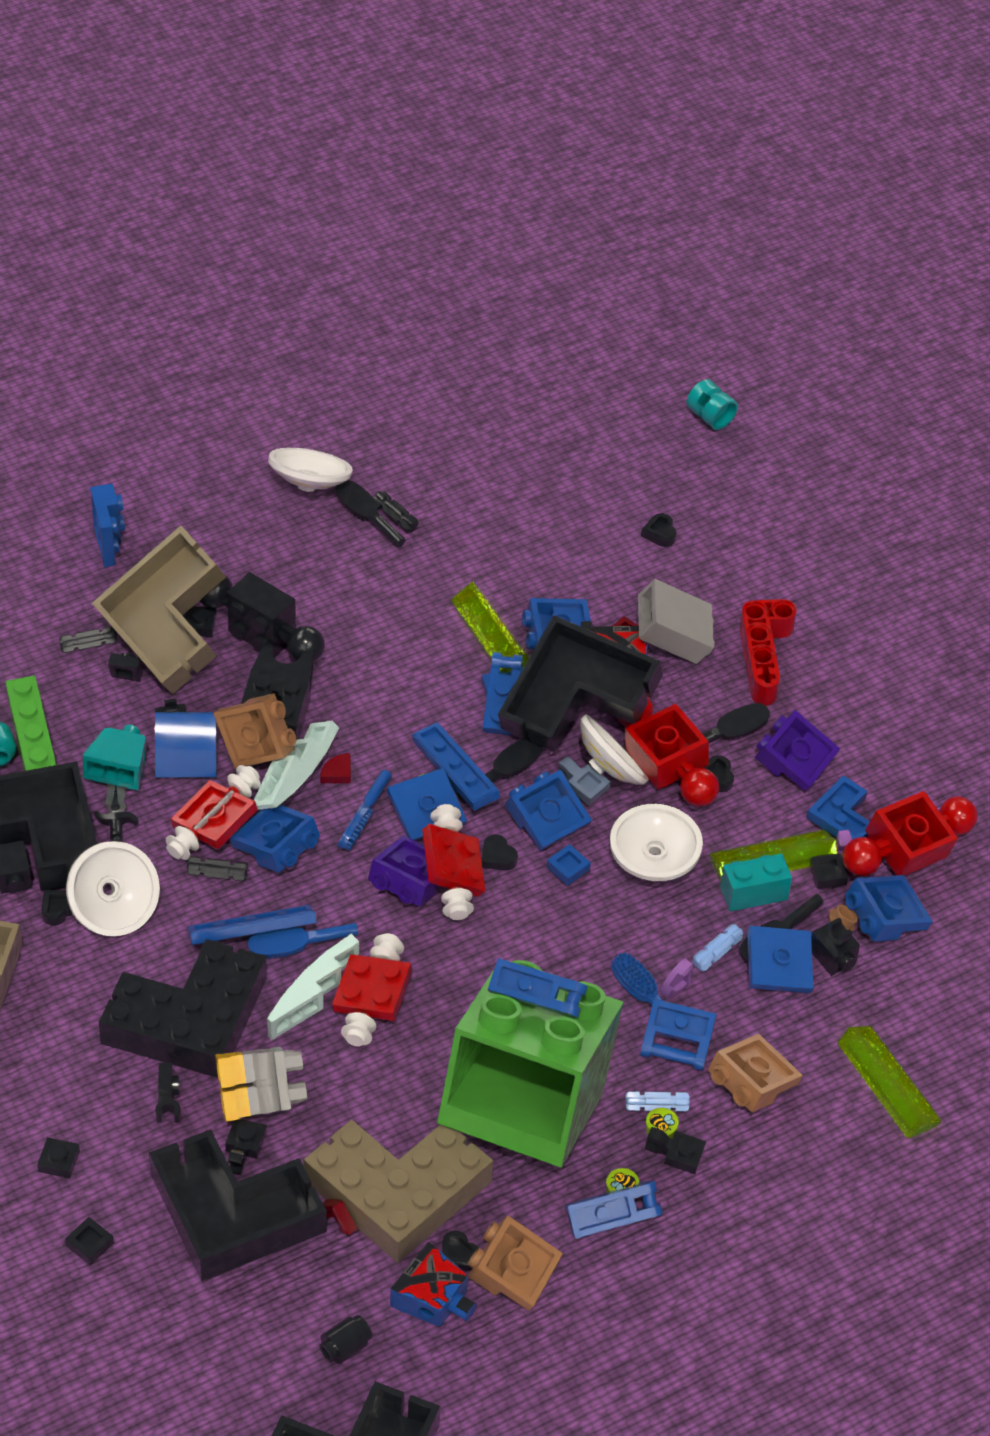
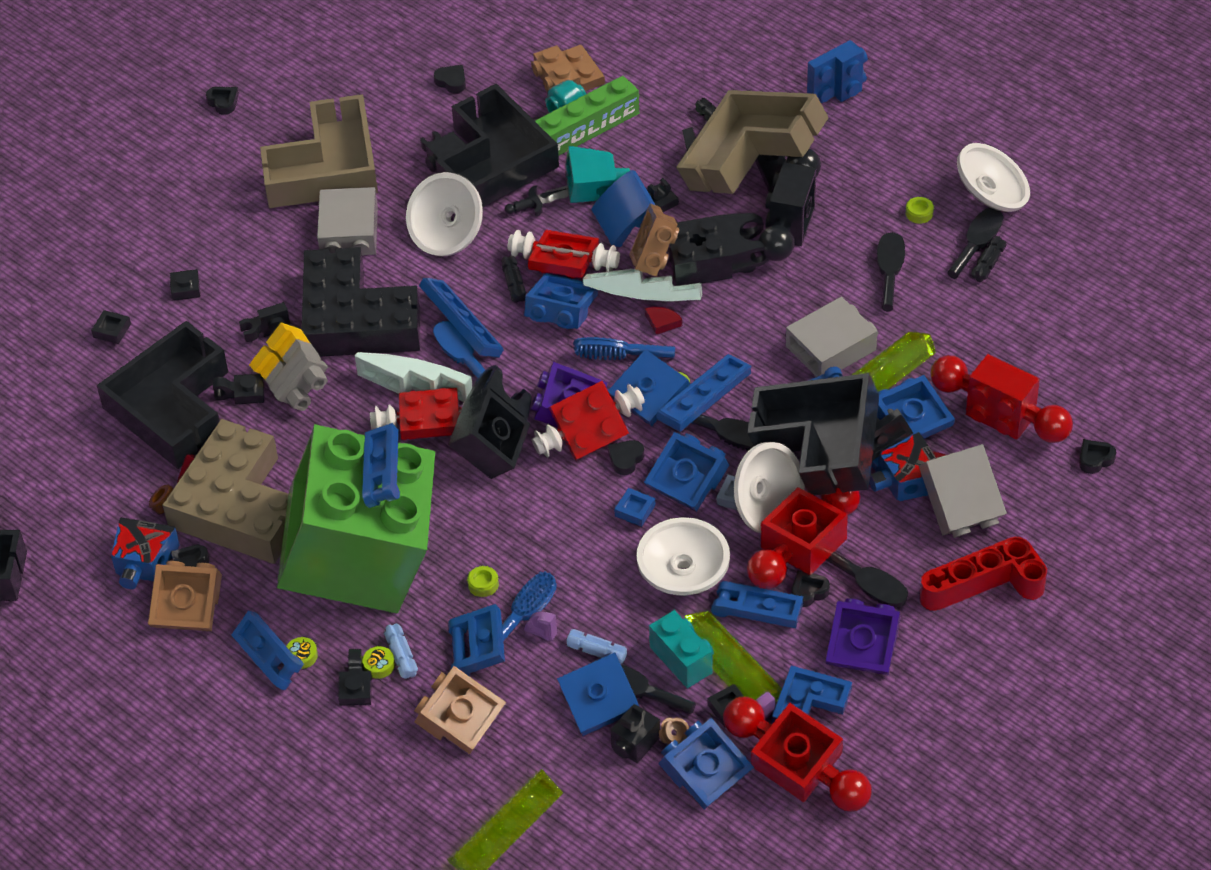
camera: 75 degrees right, 0 degrees up
(59, 981) = (348, 219): none -> light grey brick
(303, 537) = (919, 210): none -> lime tile
(345, 1339) = (73, 511): black brick -> none
(362, 579) = (890, 261): none -> black piece
(369, 1251) = (159, 497): none -> reddish brown tile
(425, 934) = (492, 425): none -> black brick
(437, 652) = (831, 337): none -> light grey brick
(582, 557) = (1002, 397): none -> red brick
(726, 811) = (757, 604): none -> blue plate

